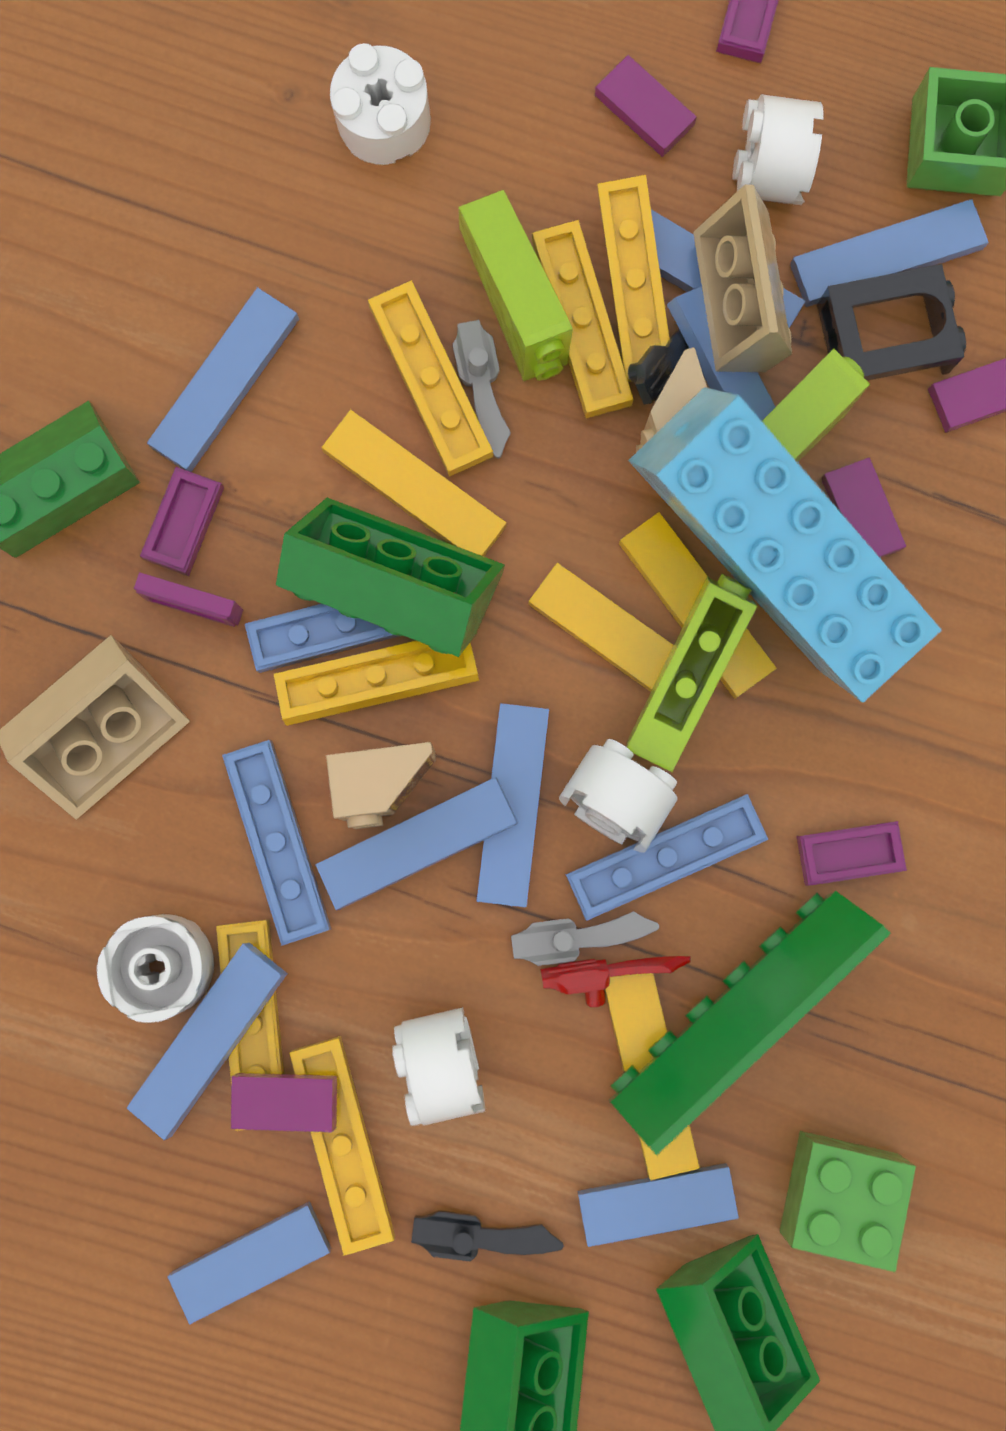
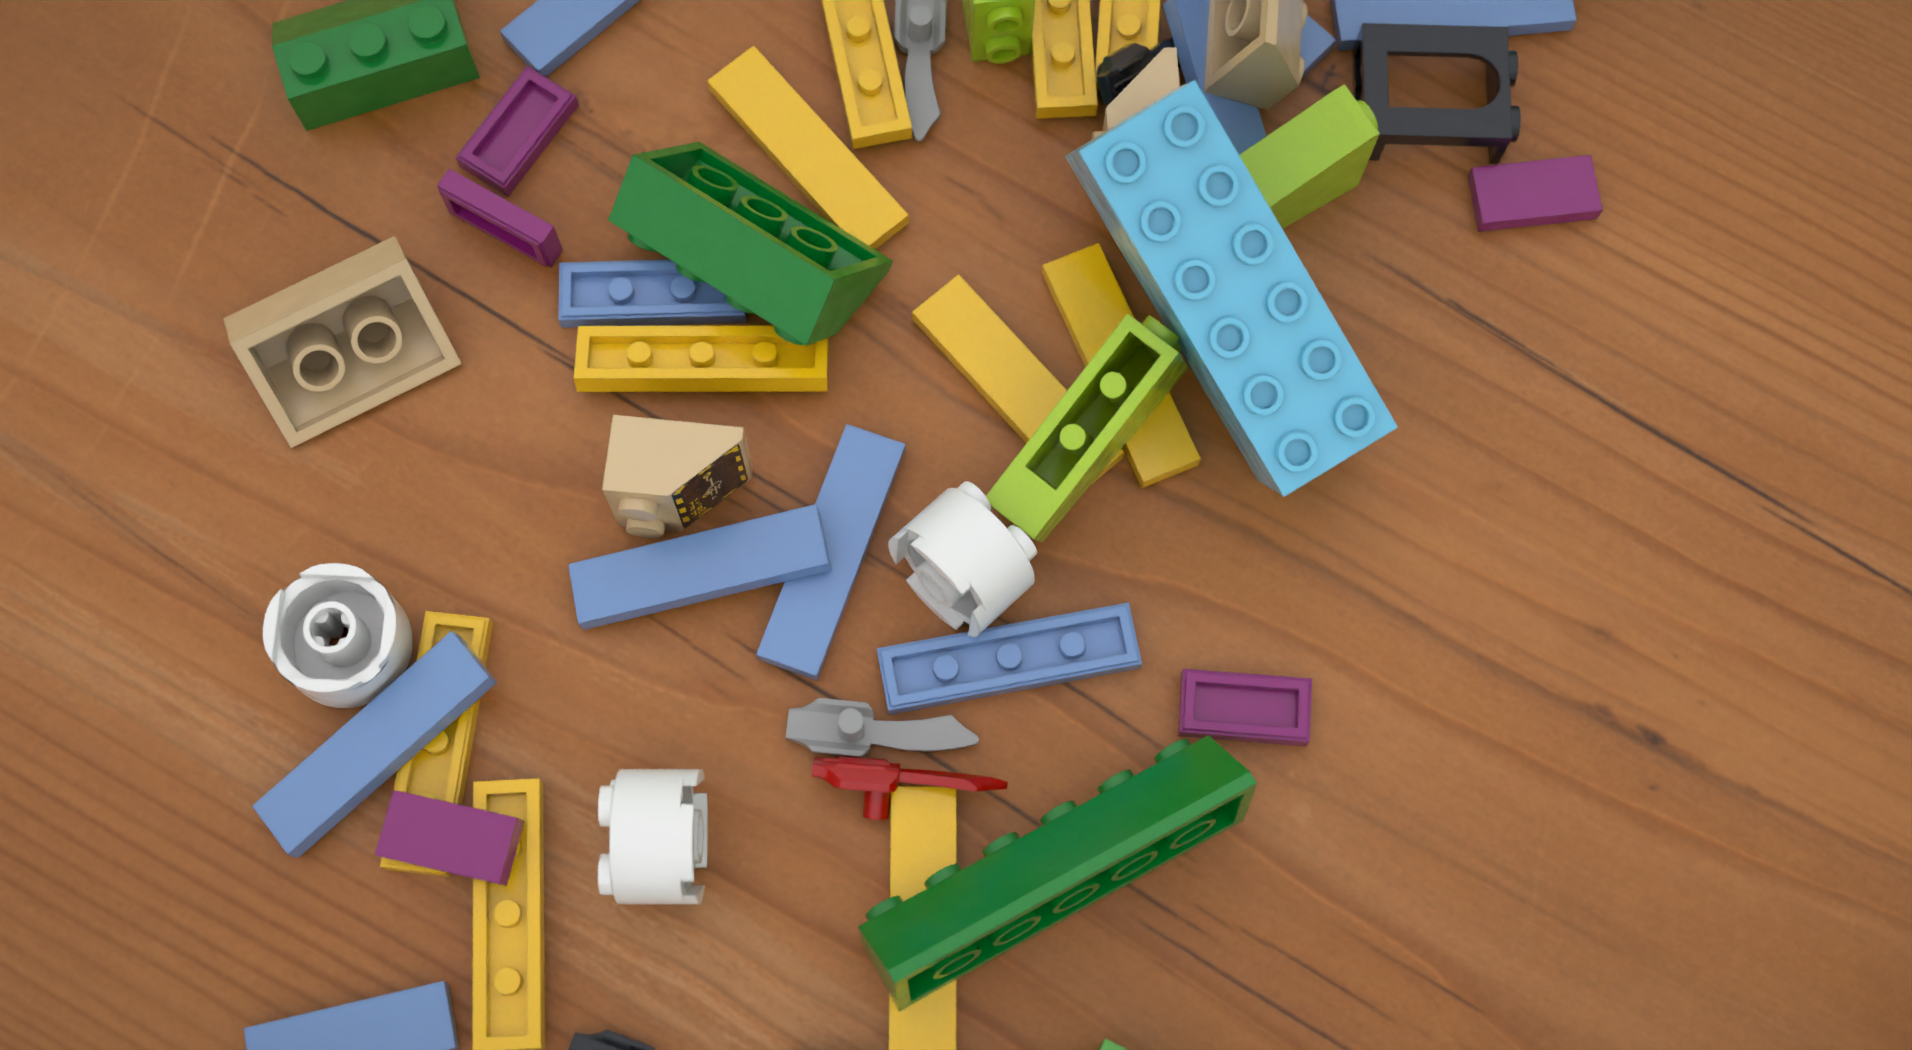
camera: 15 degrees right, 10 degrees down
(276, 842) = (528, 531): medium blue tile -> none
(863, 503) = (1354, 291): magenta tile -> none

